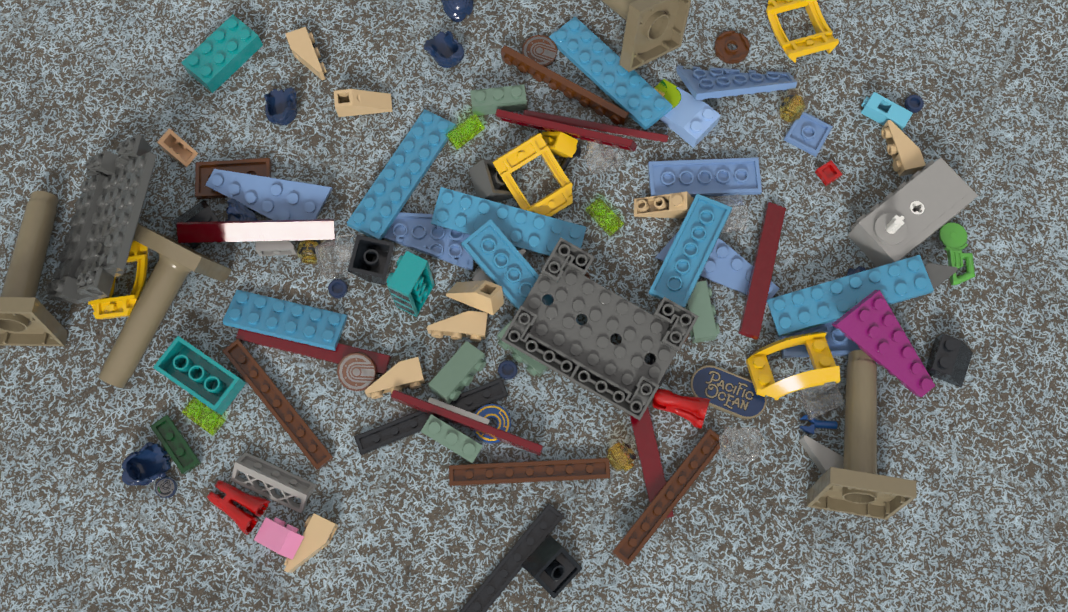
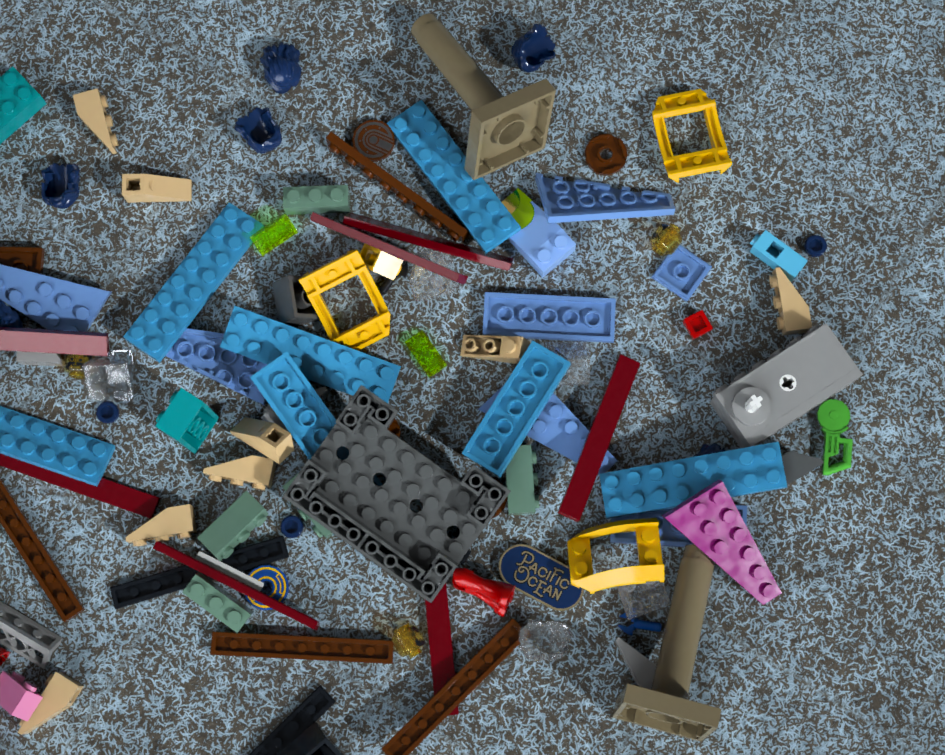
camera: 10 degrees right, 5 degrees up
(357, 371) = (119, 513): tile -> none
(371, 259) = (148, 383): black slope -> none
(949, 360) = (803, 565): black slope -> none

